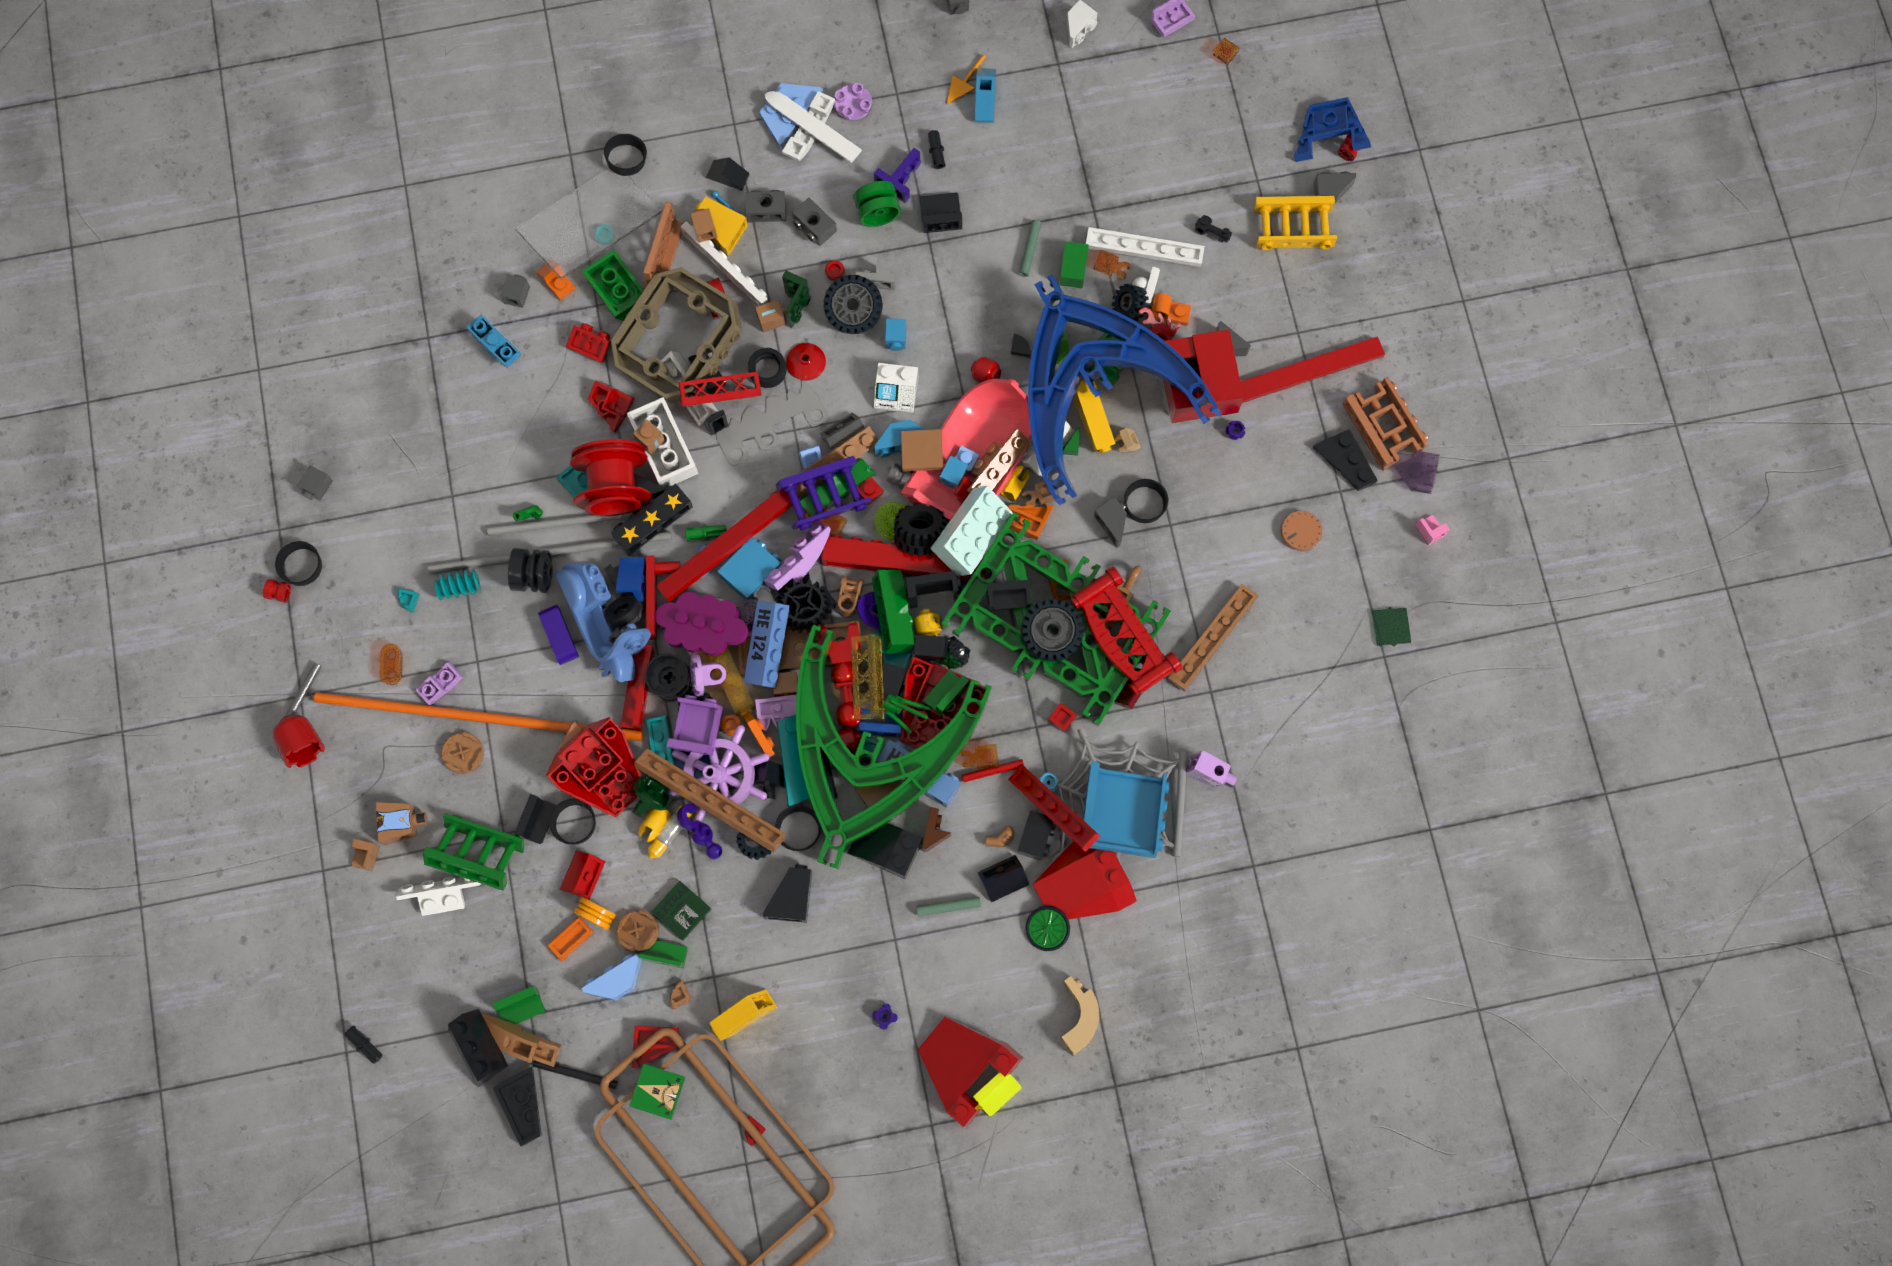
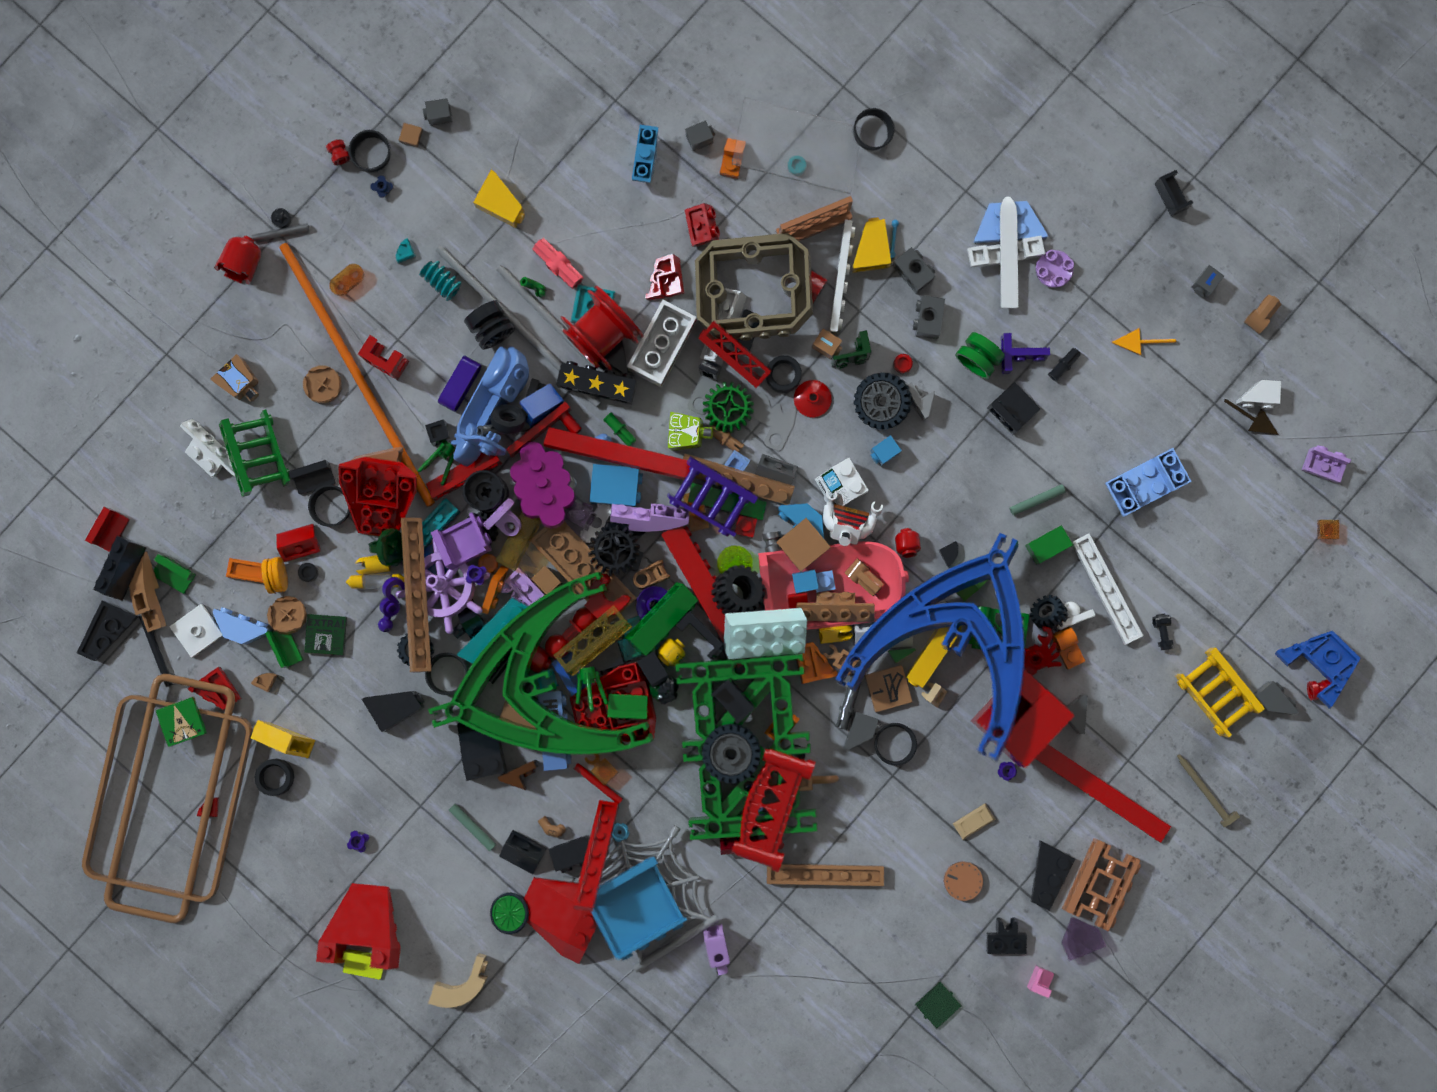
camera: 50 degrees right, 10 degrees up
(290, 682) = (281, 218): none -> black tile
(313, 521) = (410, 134): none -> medium nougat tile
(340, 581) = (387, 186): none -> dark blue plate
(363, 1045) = (65, 484): black axle -> none
(365, 854) = (197, 375): medium nougat panel -> none
(433, 488) = (498, 201): none -> yellow slope
(434, 1036) = (107, 528): none -> red panel
(438, 685) = (359, 326): lavender slope -> none
(485, 686) = (371, 354): none -> red panel
(524, 479) = (558, 263): none -> coral piece
(584, 682) = (437, 432): none -> black panel
(587, 1023) = (196, 630): none -> white plate
(606, 690) = (444, 451): none -> green plant
(614, 284) = (760, 207): green slope -> none
(614, 886) = (308, 572): none -> black tile
(649, 436) = (653, 332): medium nougat brick -> none
(703, 225) = (857, 237): medium nougat brick -> none
(727, 734) = (472, 570): none -> dark purple plate
(728, 173) = (919, 219): black slope -> none
(748, 442) = (719, 406): none -> green gear
(752, 477) = (687, 432): none -> lime torso
(755, 1046) = (259, 781): none -> black tyre
(766, 644) = (562, 545): medium blue brick -> none
(782, 452) = (726, 439): none -> medium nougat pin
(932, 404) = (847, 523): none -> white torso
(983, 424) = (860, 574): none -> medium nougat piece
(985, 95) = (1140, 367): dark azure slope -> none
(1062, 717) = (676, 805): red plate -> none
(1082, 152) = (1148, 482): none -> light blue slope
(1086, 518) = (847, 707): none -> dark grey pin
(1095, 474) = (888, 688): none -> medium nougat tile
(1101, 41) = (1260, 424): none -> dark brown piece
(1108, 263) = (1071, 570): clear orange plate -> none
(1258, 487) = (974, 821): none -> tan tile
(1376, 530) = (1006, 939): none -> black plate
(1403, 290) = (1226, 819): none -> dark tan piece

